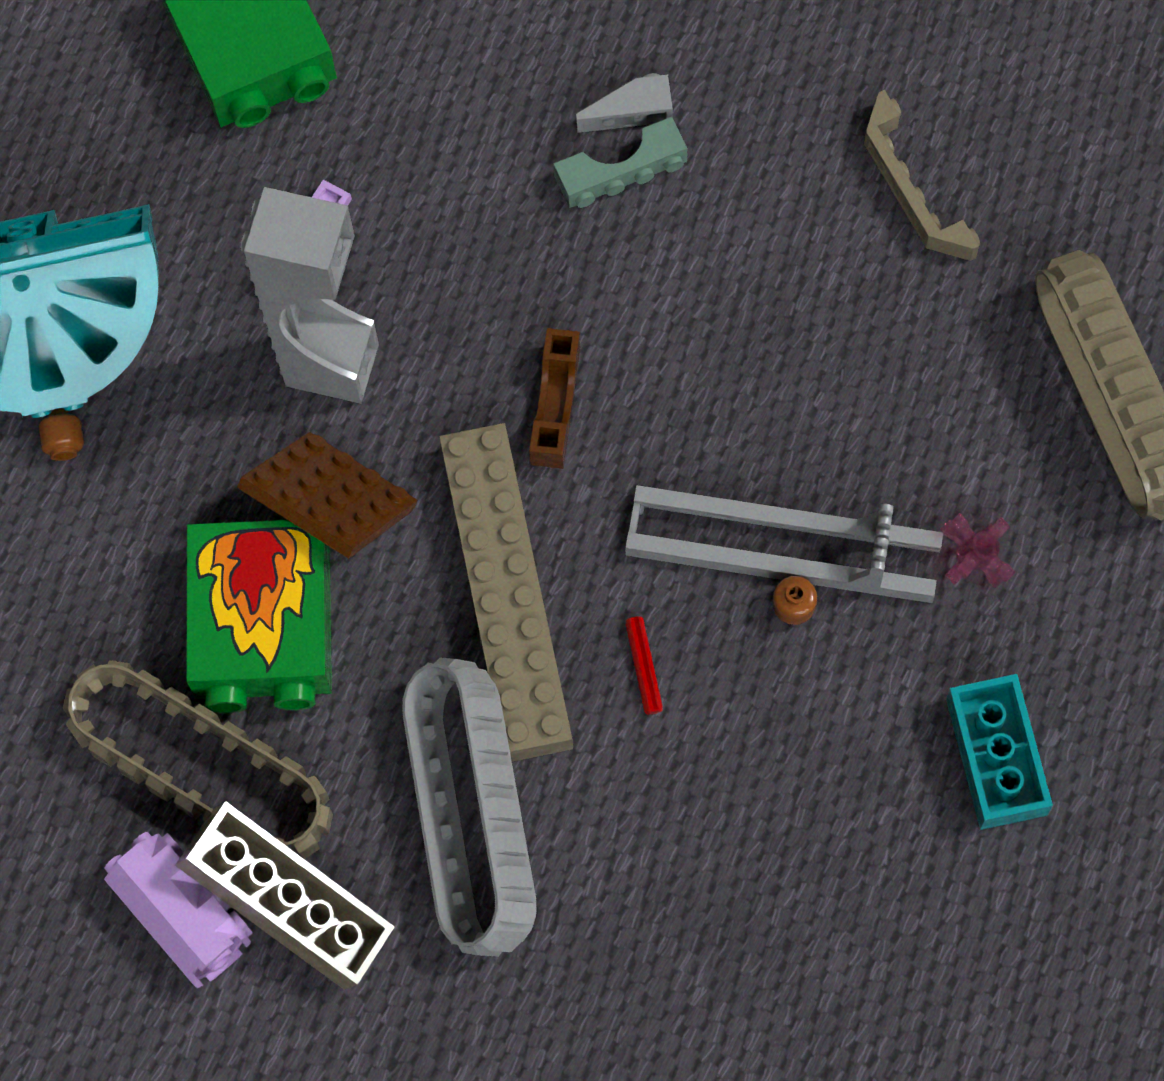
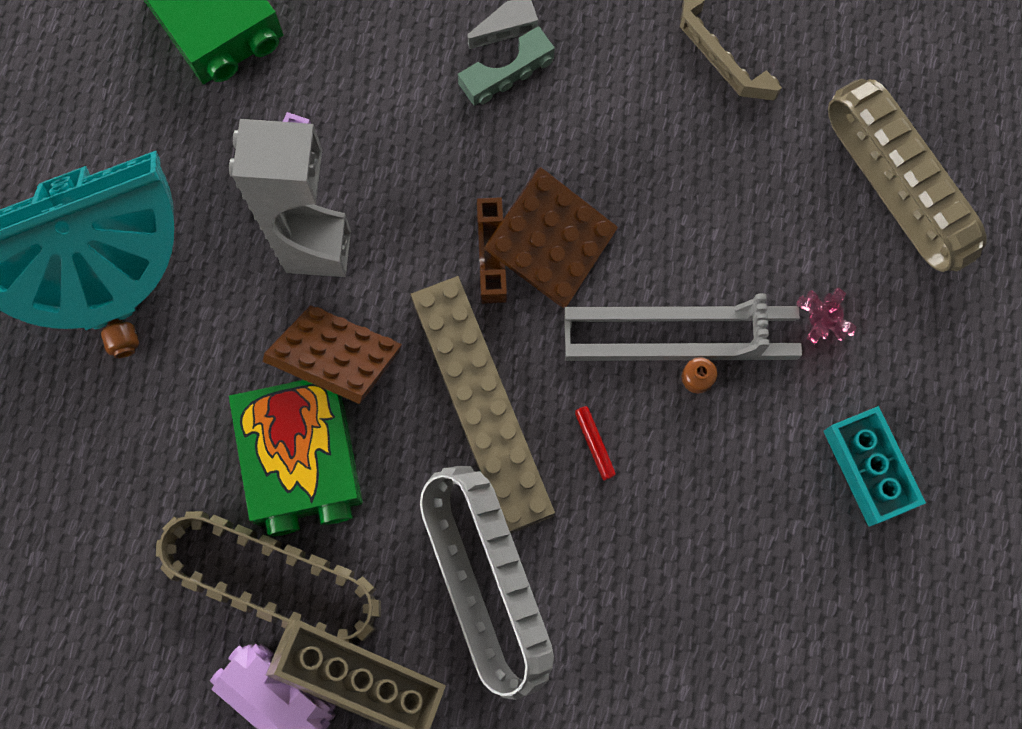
camera: 15 degrees left, 5 degrees up
(635, 394) = (551, 237): none -> reddish brown plate

